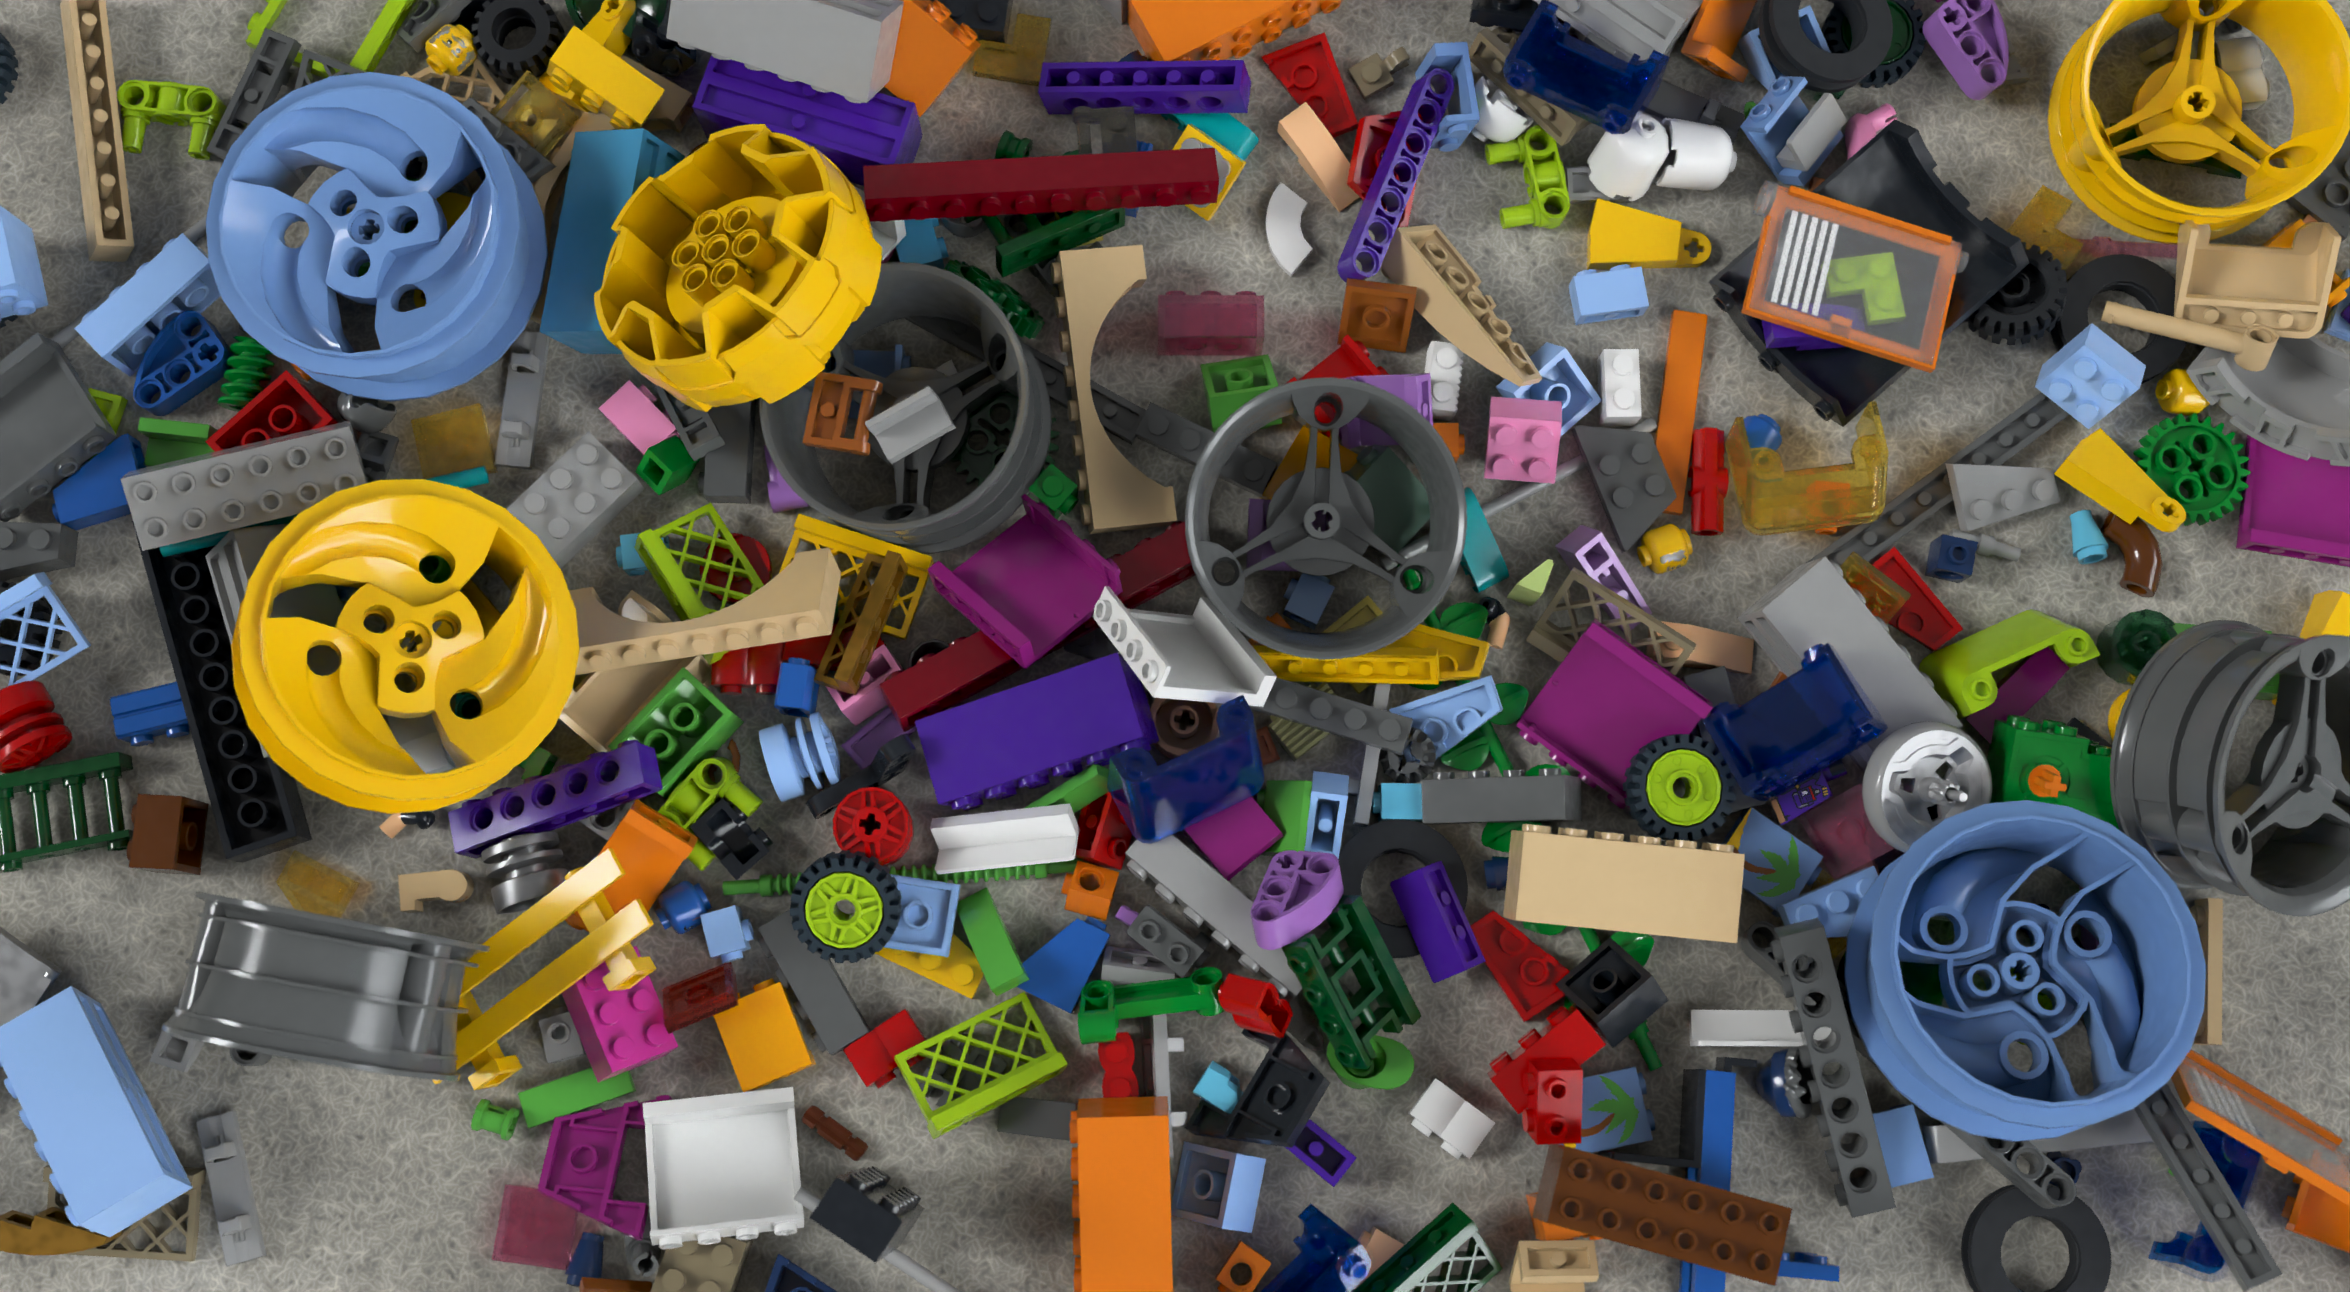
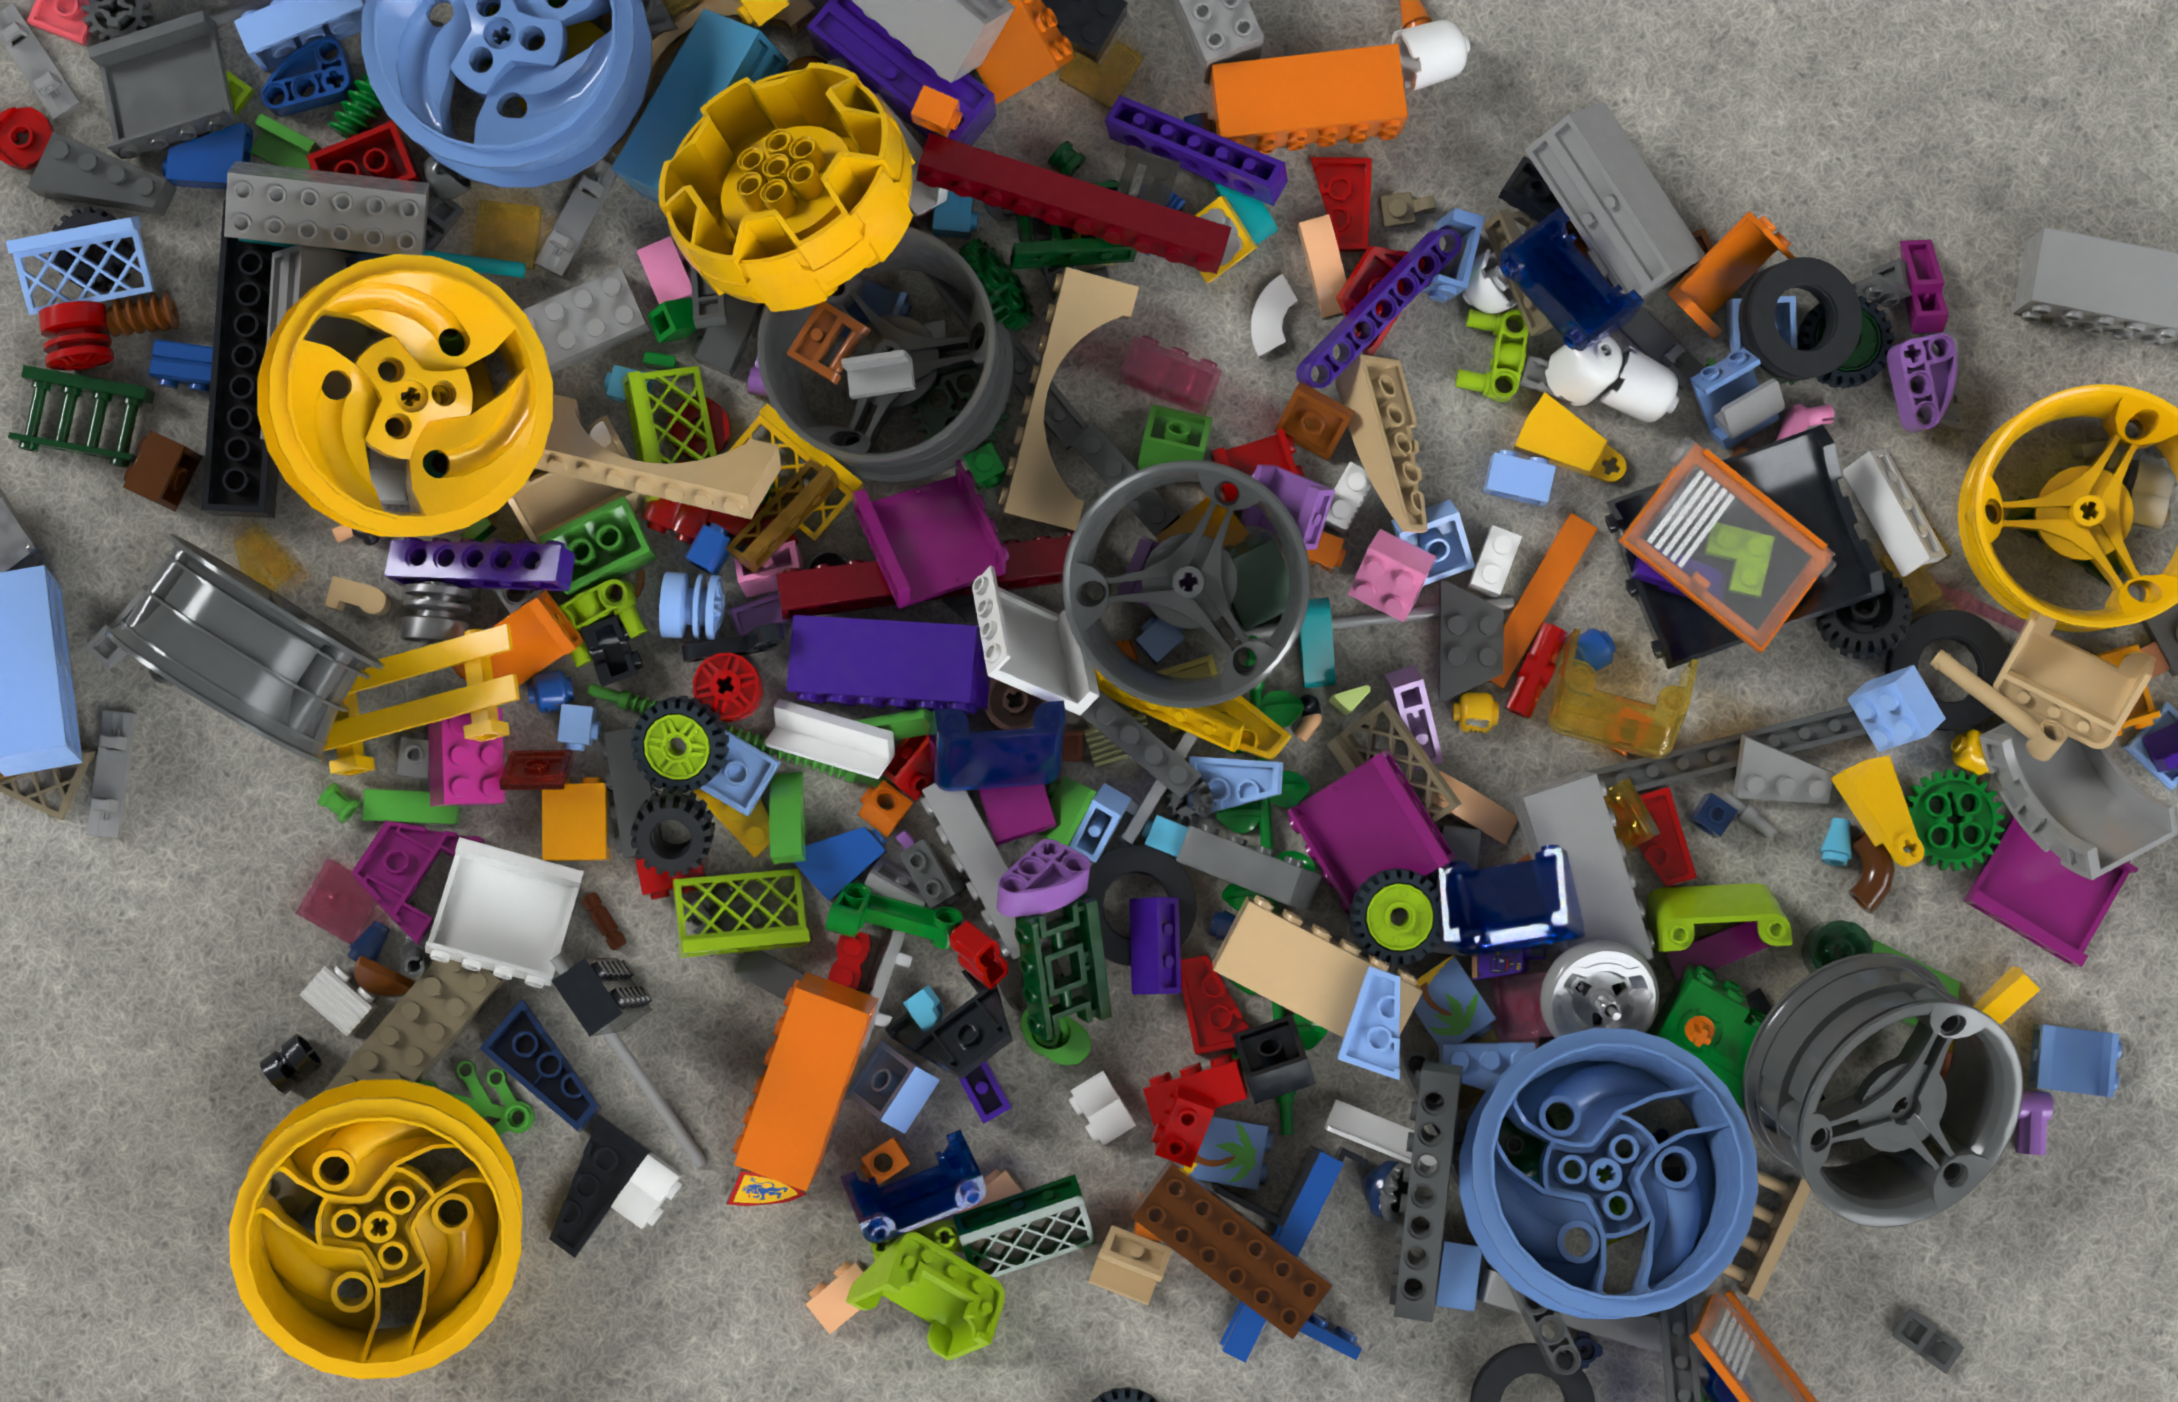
camera: 25 degrees right, 5 degrees up
(87, 678) = (142, 315): none -> dark orange piece
(667, 513) = (660, 361): none -> green tile
(862, 140) = (936, 111): none -> orange brick
(877, 1032) = (666, 855): none -> black tyre
(1710, 911) = (1374, 1024): none -> light blue wing
(1997, 185) = (1893, 511): none -> white panel

